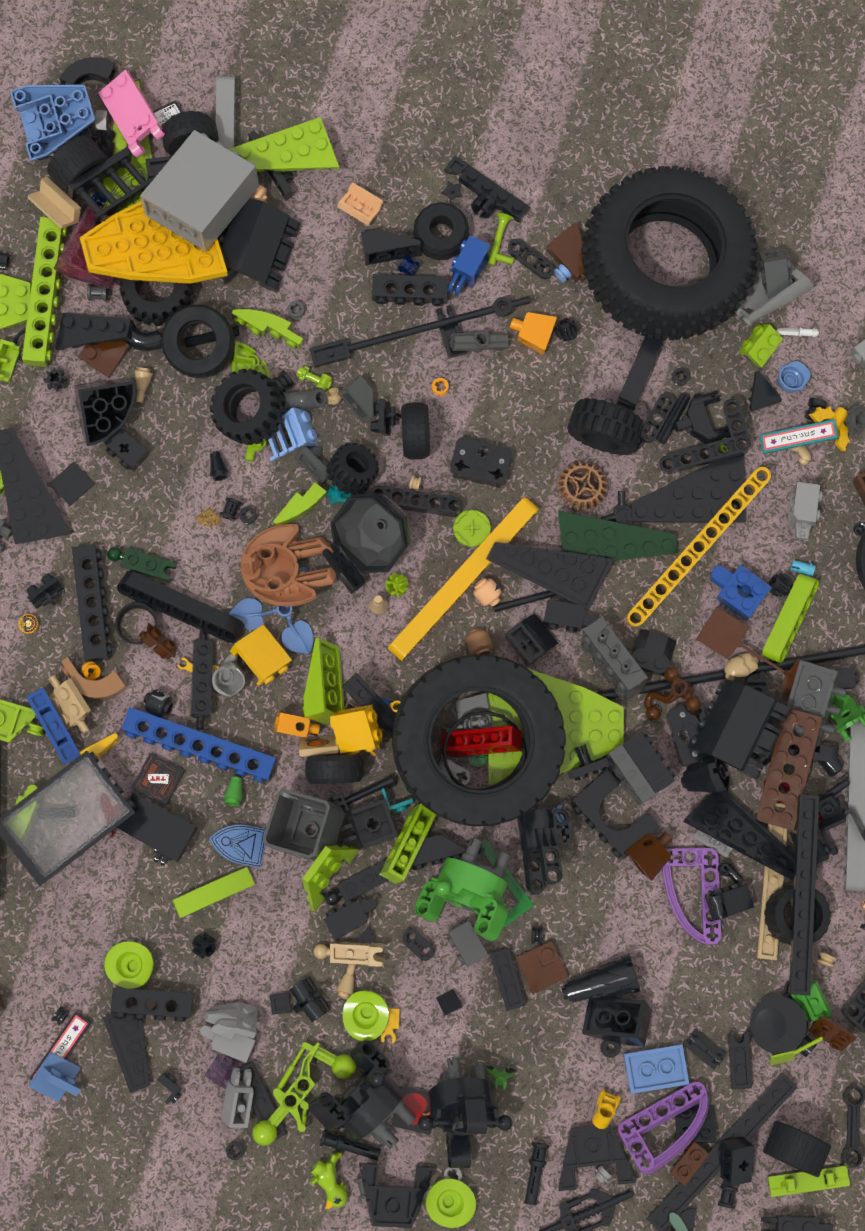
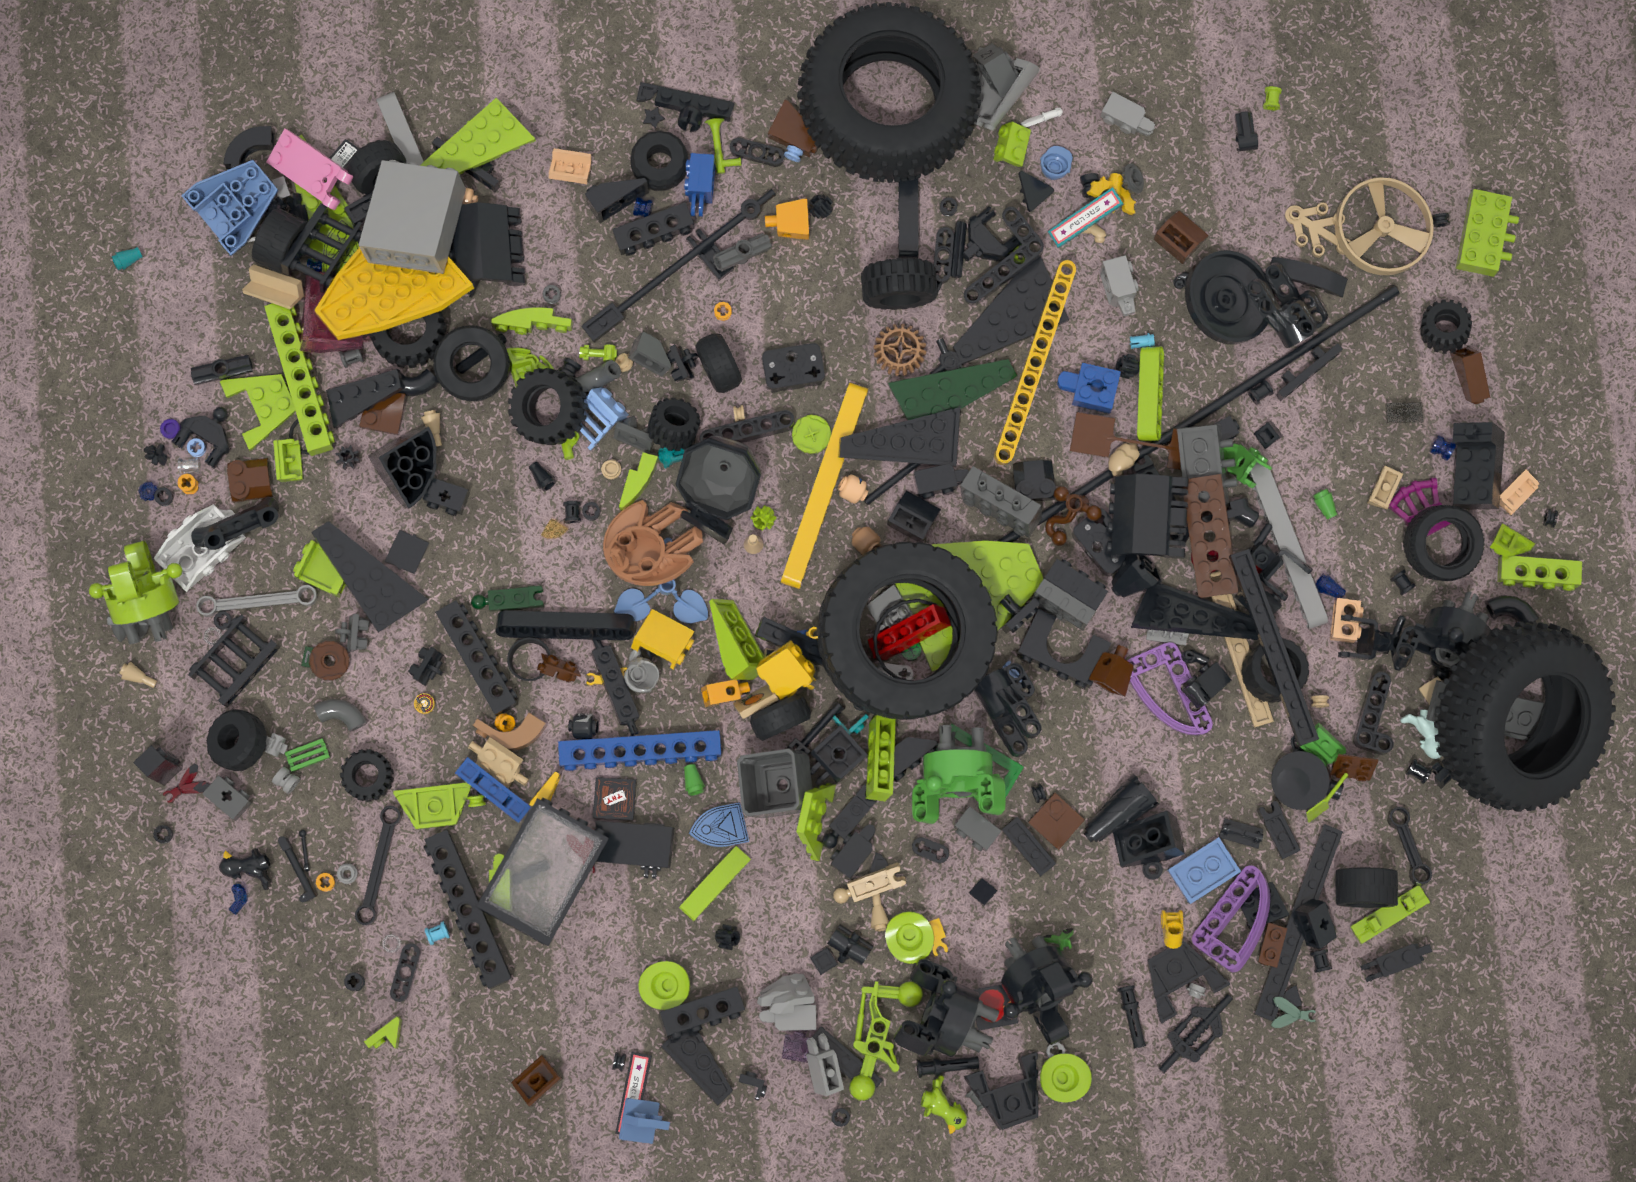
camera: 20 degrees left, 0 degrees up
(281, 485) = (611, 469): none -> tan plate

